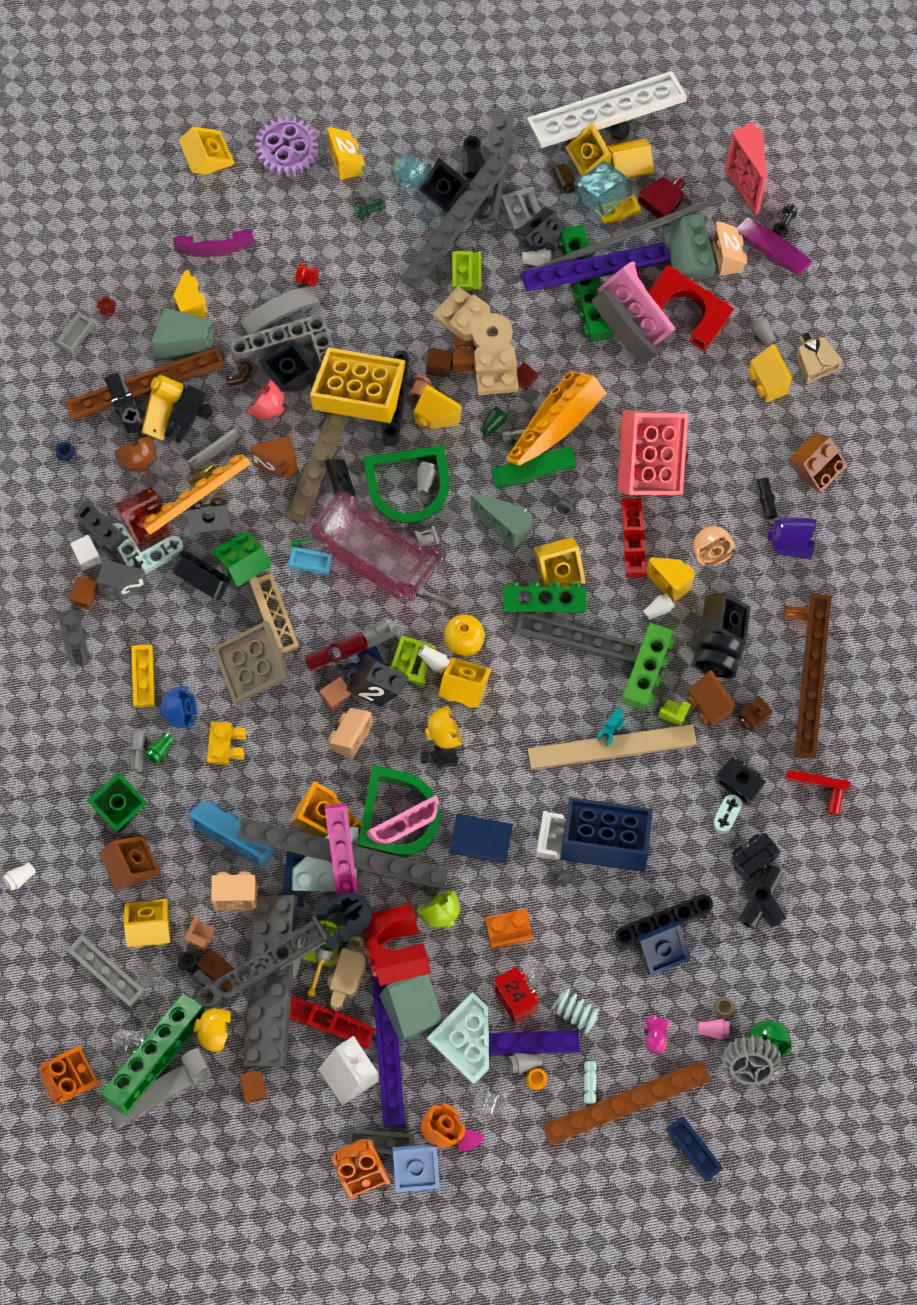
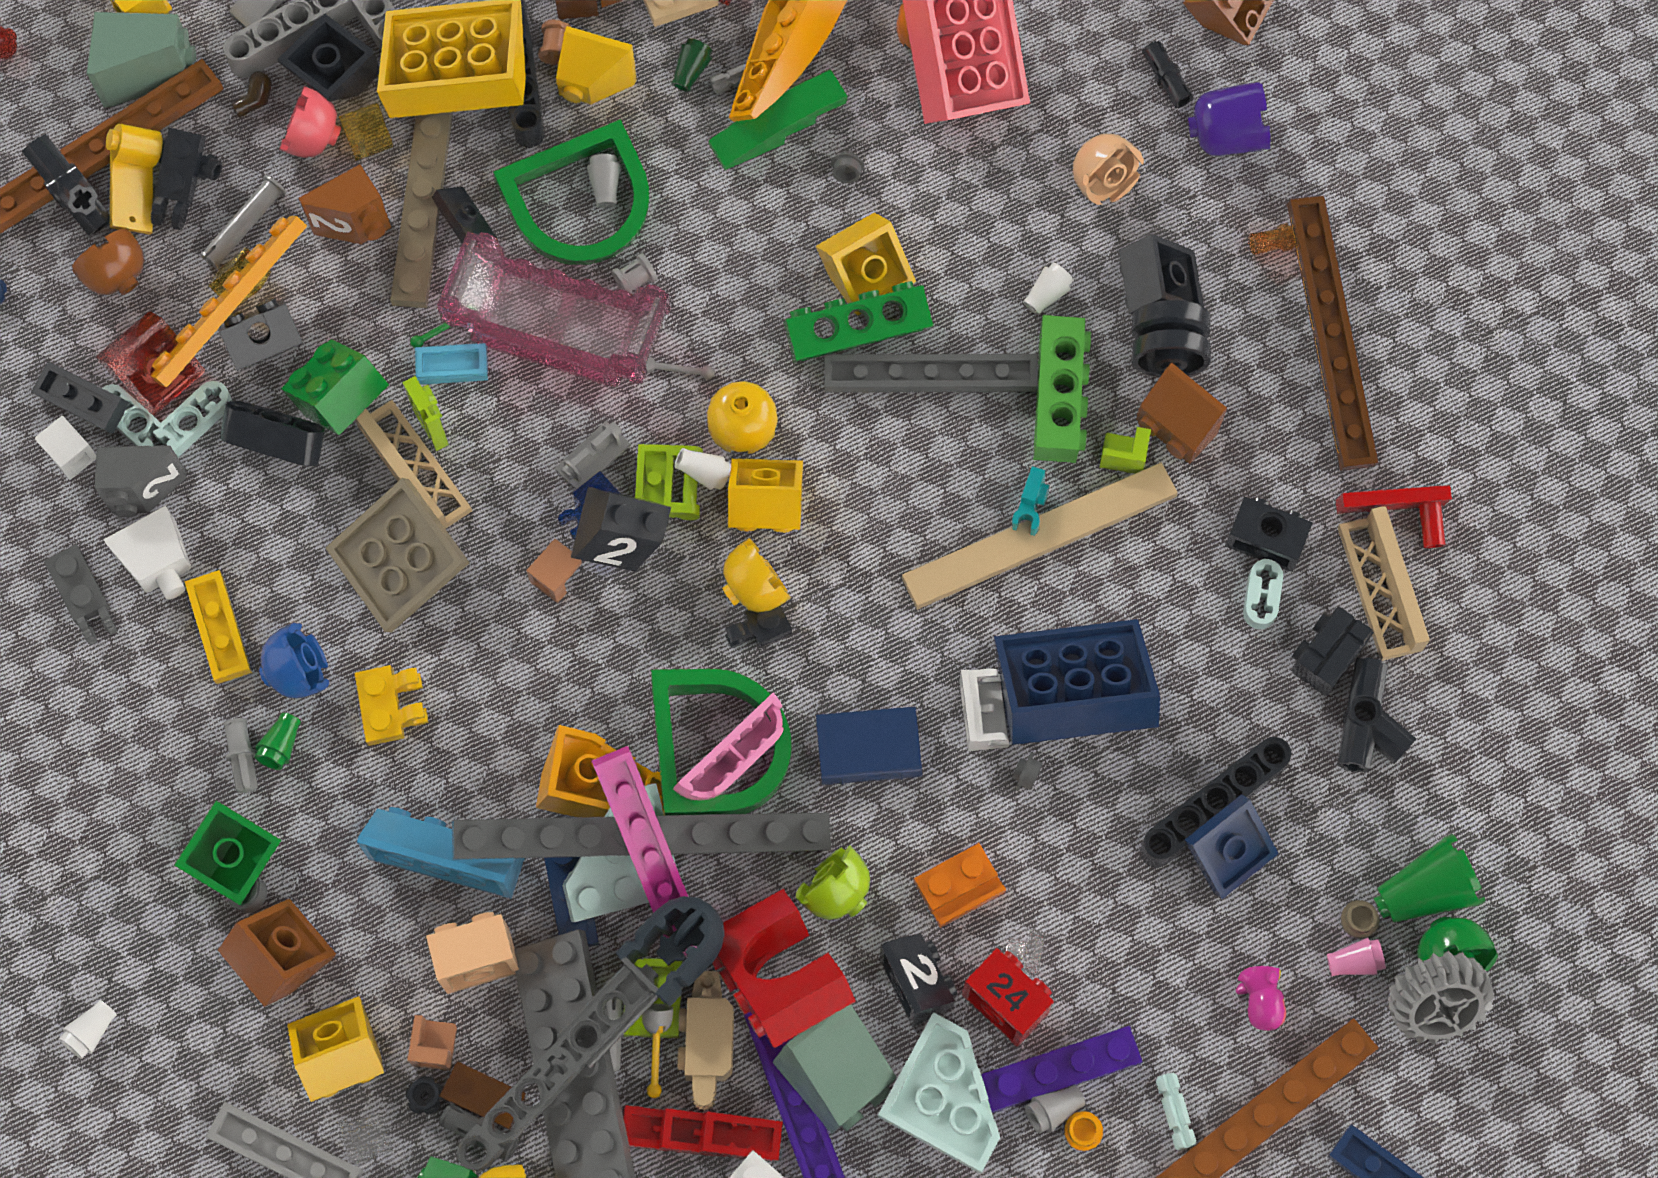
camera: 15 degrees left, 0 degrees up
(84, 593) = (80, 514): dark orange brick -> none
(118, 625) = (153, 553): none -> white torso
(289, 585) = (427, 412): none -> lime plate
(298, 413) = (366, 131): none -> clear yellow panel
(325, 656) = (519, 511): dark red piece -> none
(351, 732) = (598, 627): light nougat slope -> none
(469, 971) = (916, 977): none -> black slope
(503, 518) = (752, 210): sand green slope -> none
(576, 1011) = (1116, 993): light aqua piece -> none
(633, 537) = (973, 190): red slope -> none
(671, 576) = (1053, 232): yellow slope -> none
(755, 714) = (1258, 419): reddish brown brick -> none
(767, 999) = (1430, 885): none -> green cone
(804, 827) = (1396, 579): none -> tan fence

